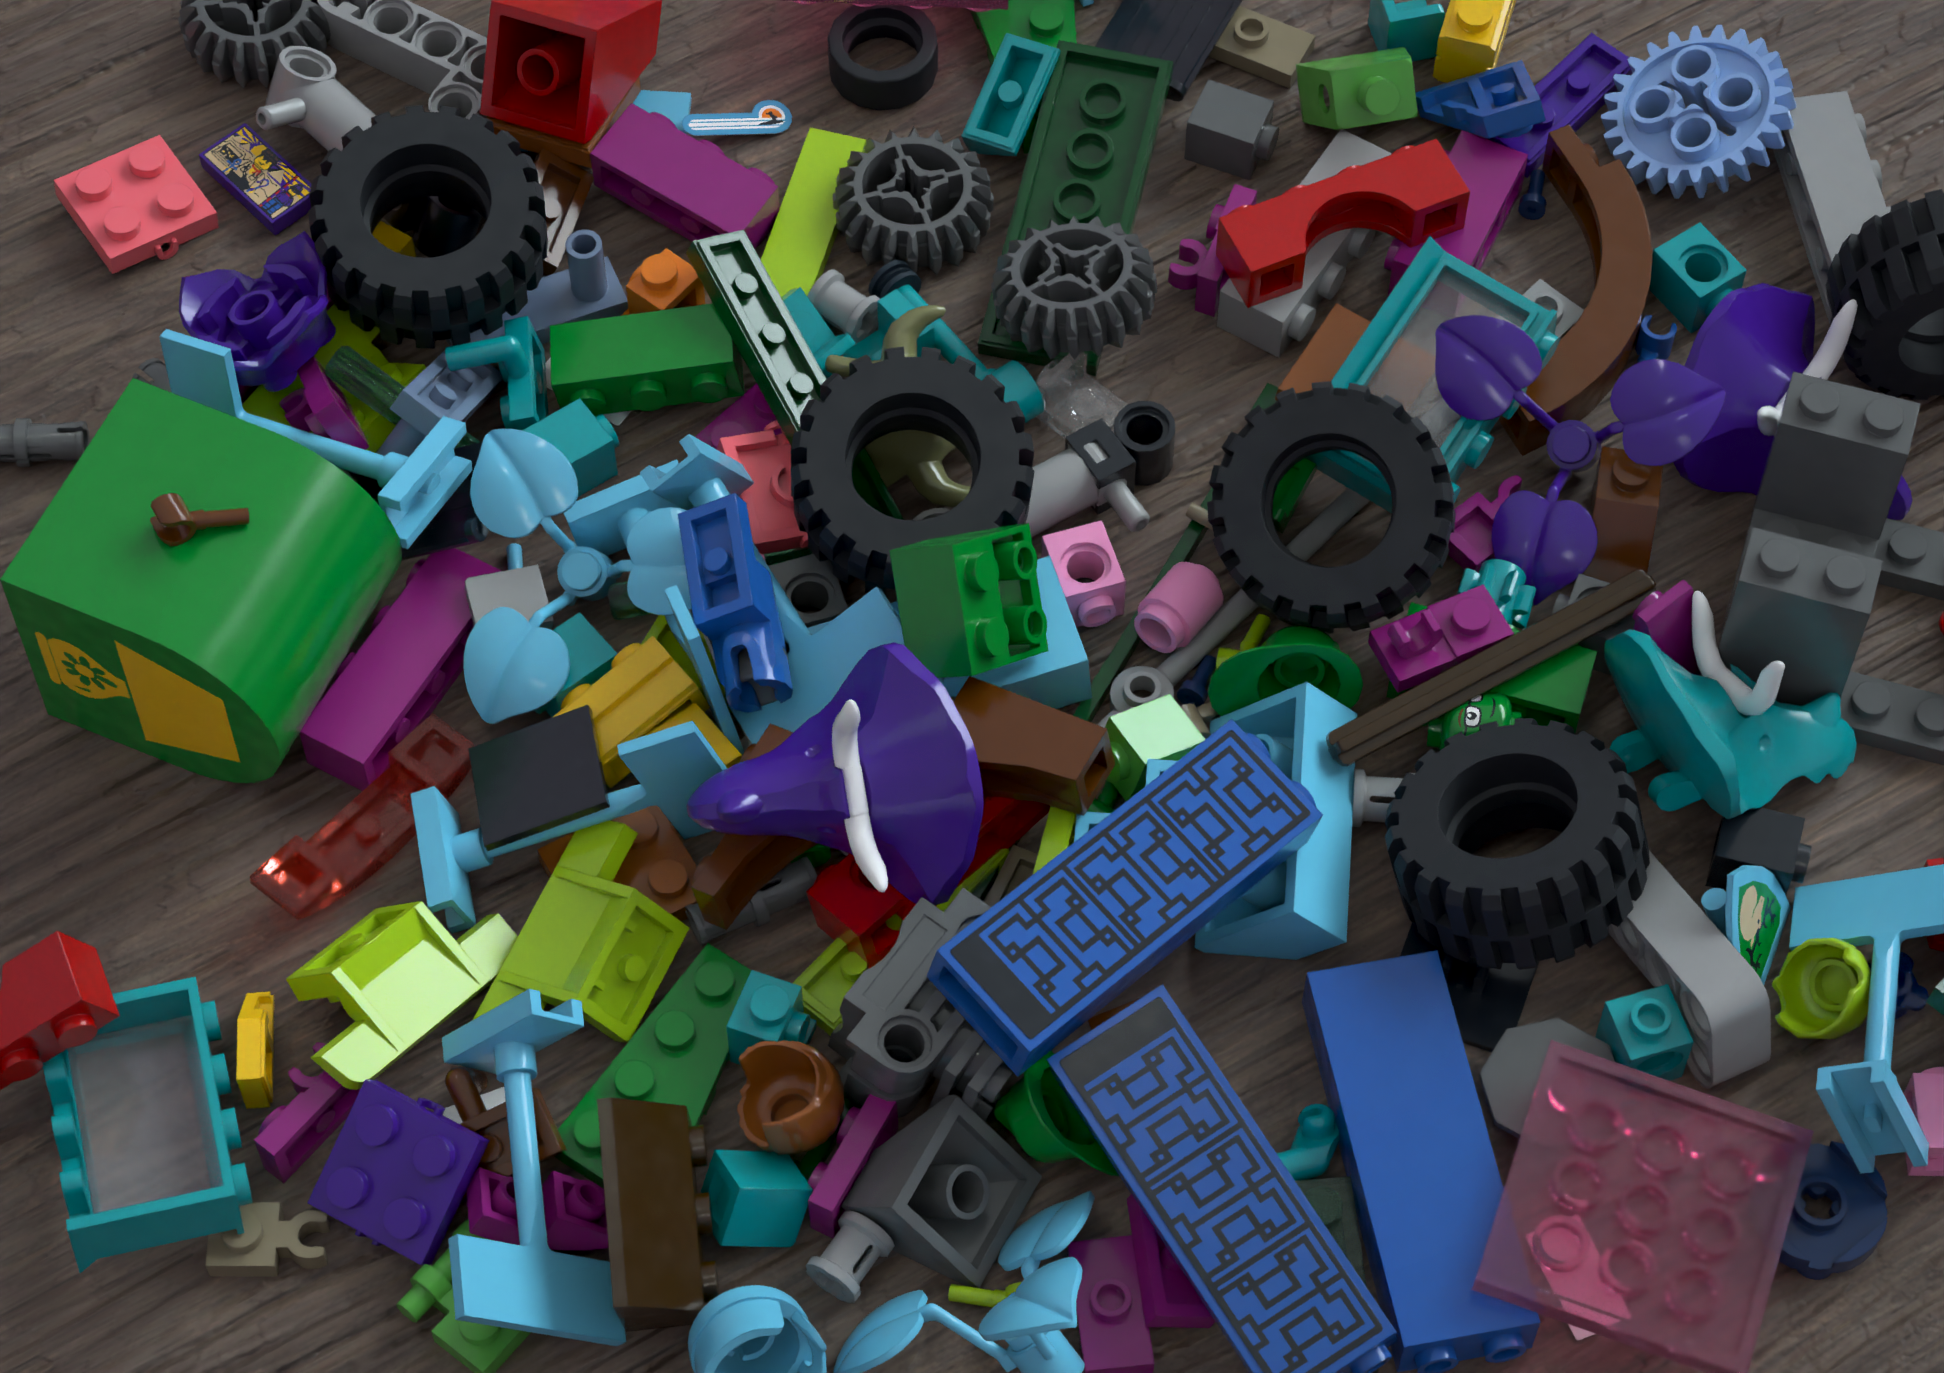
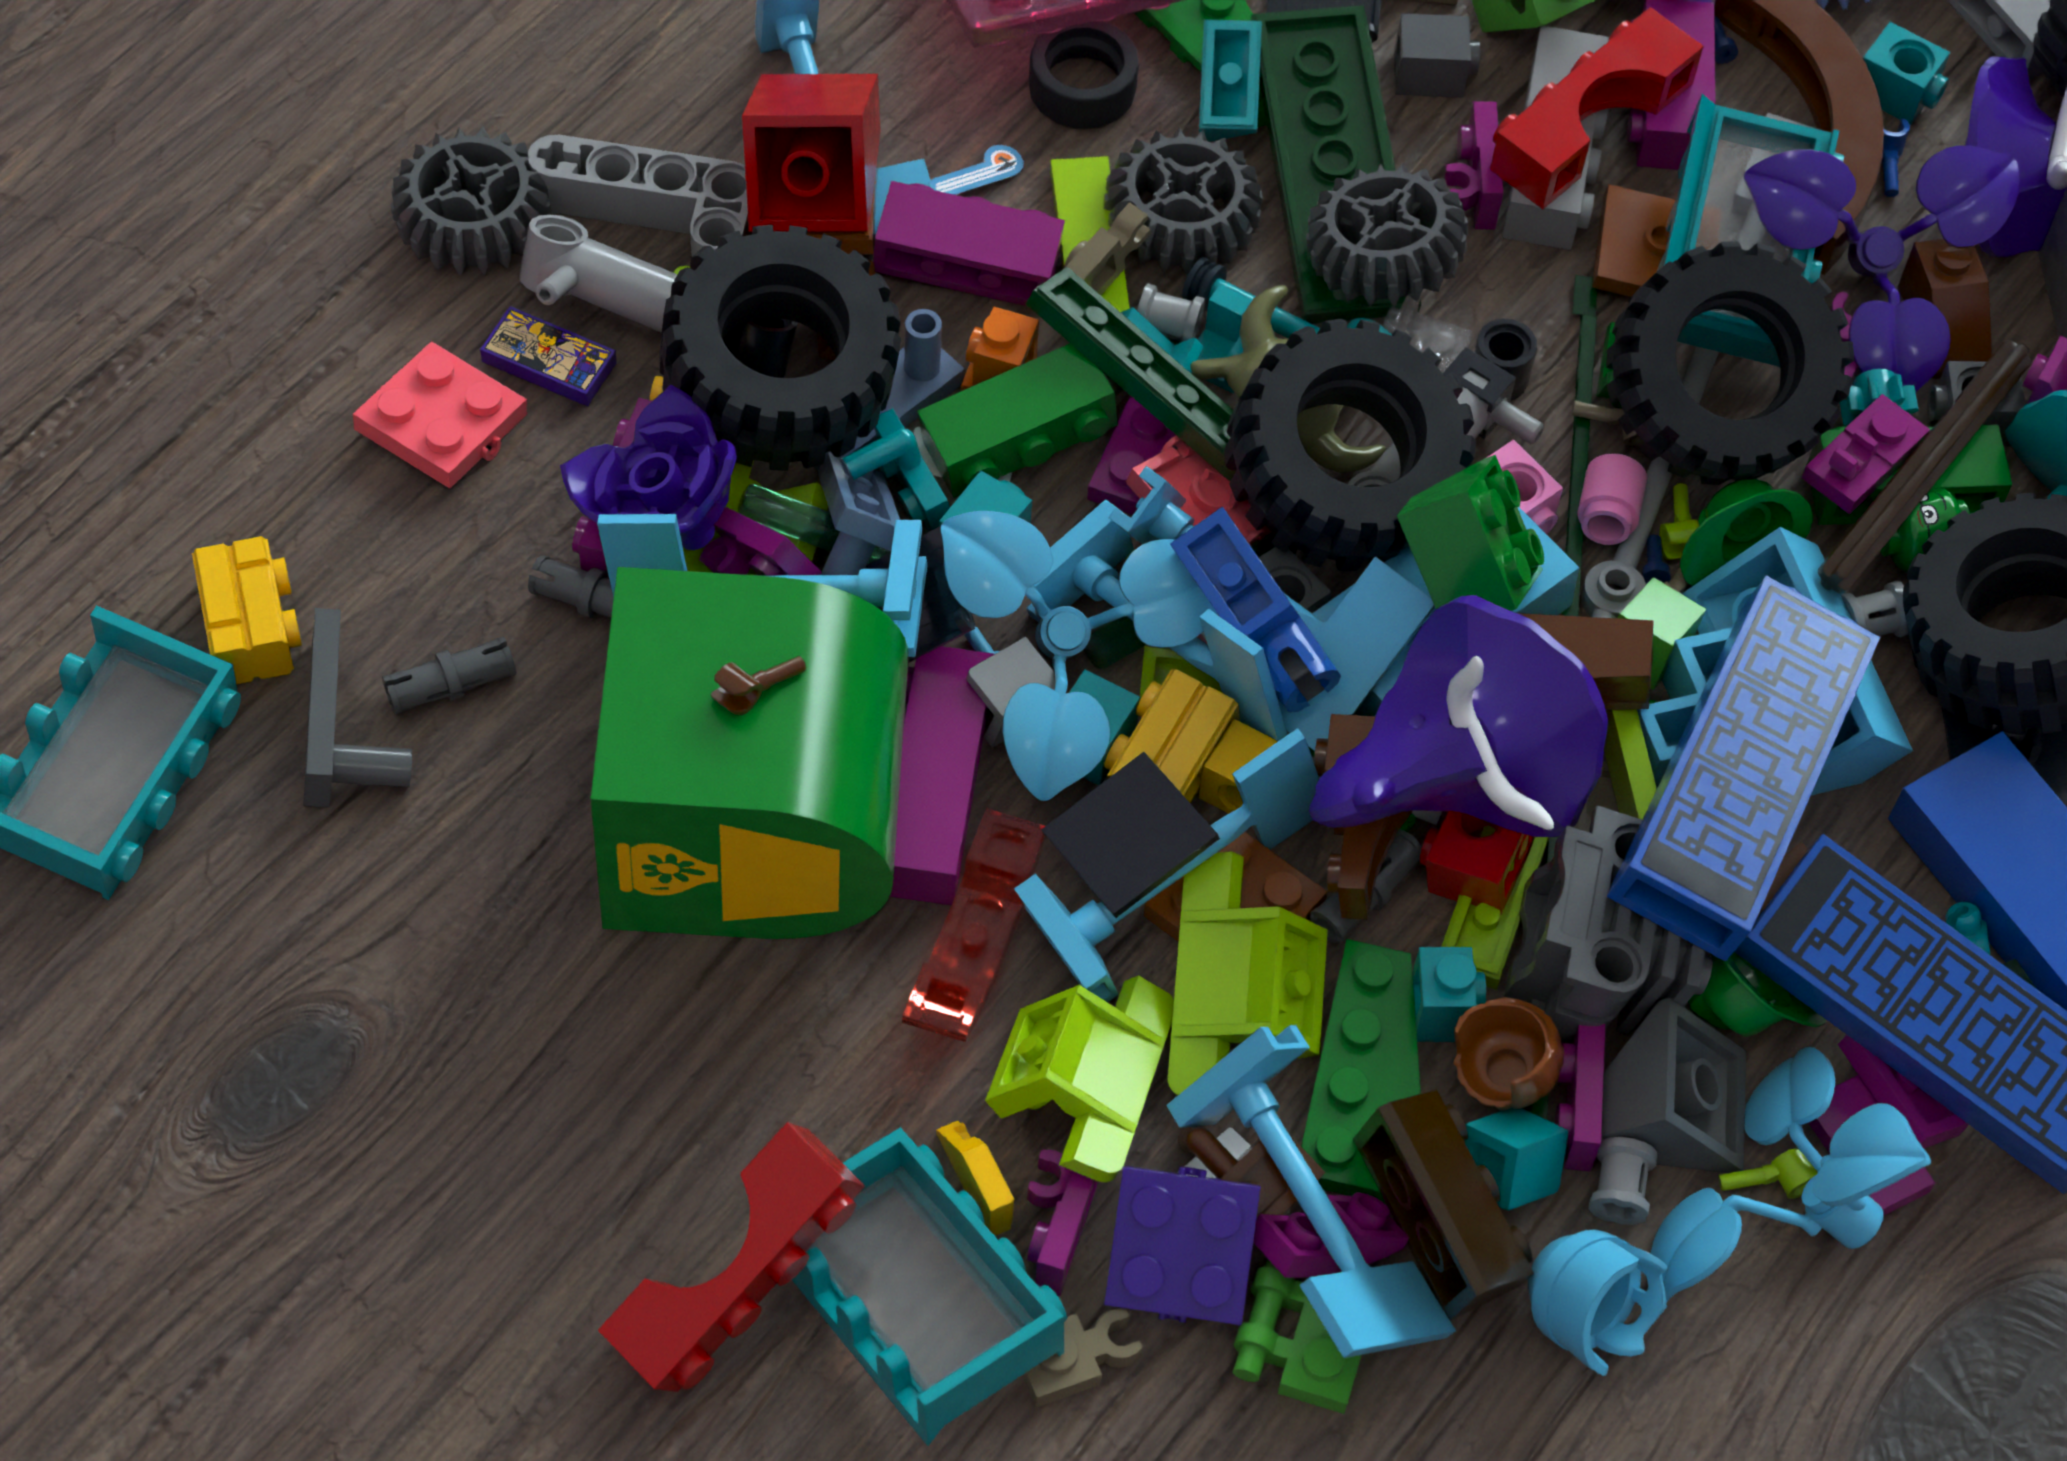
camera: 25 degrees left, 0 degrees up
(793, 233) = (1103, 256): none -> dark tan plate

